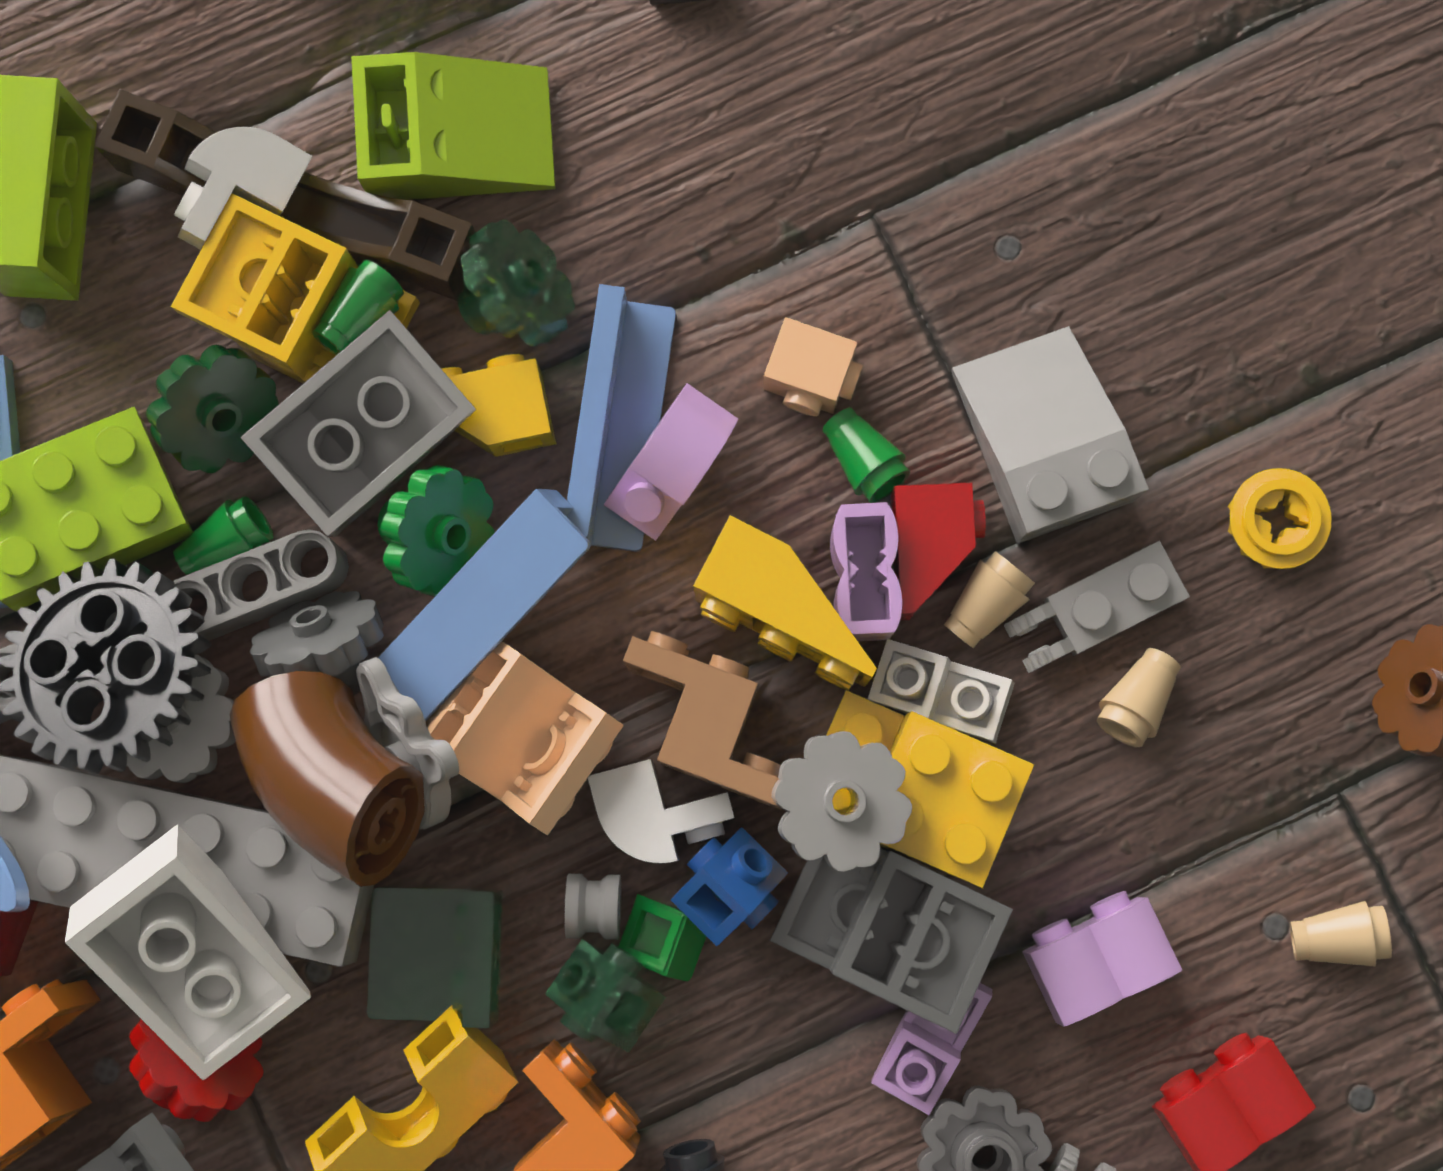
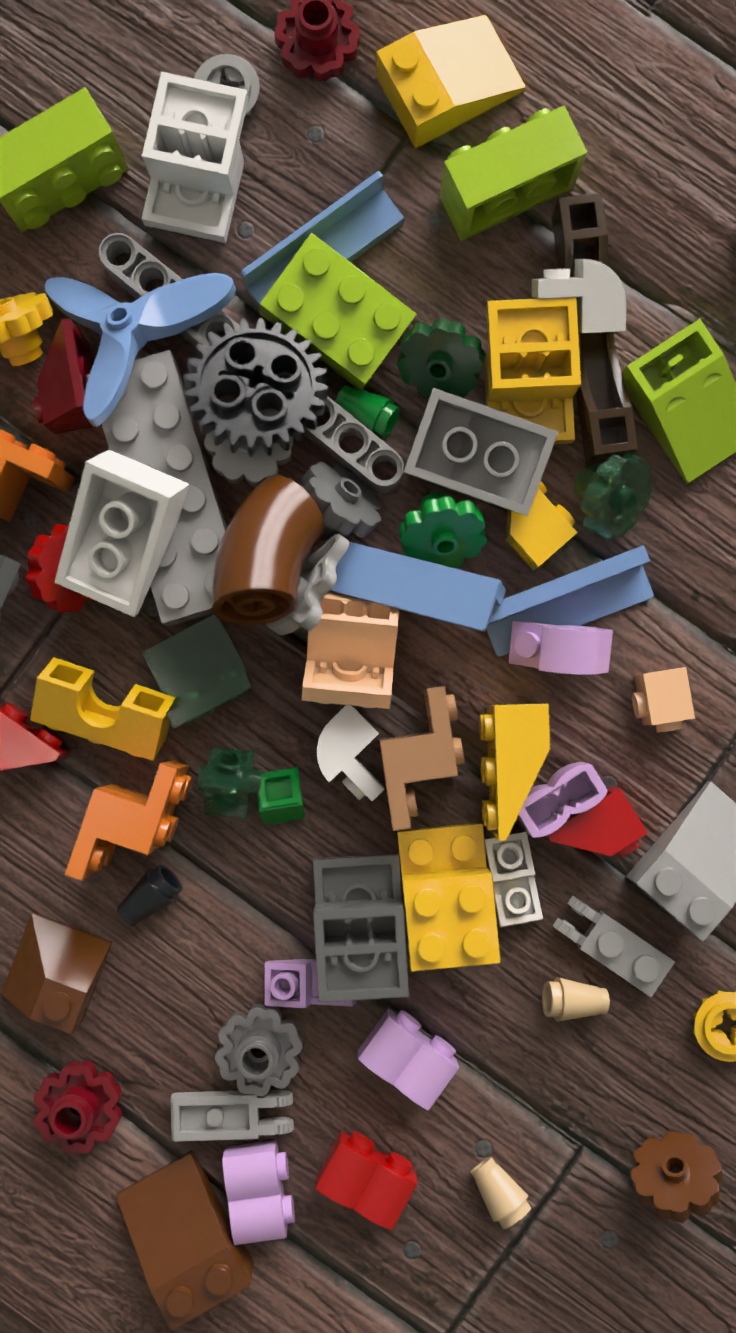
camera: 60 degrees right, 5 degrees up
(357, 304) = (549, 409): green cone -> none
(593, 906) = (276, 746): light grey wheel -> none
(739, 877) = (339, 821): blue brick -> none
(865, 456) = (628, 759): green cone -> none
(875, 810) = (422, 883): light grey plant -> none
(988, 599) = (583, 878): tan cone -> none

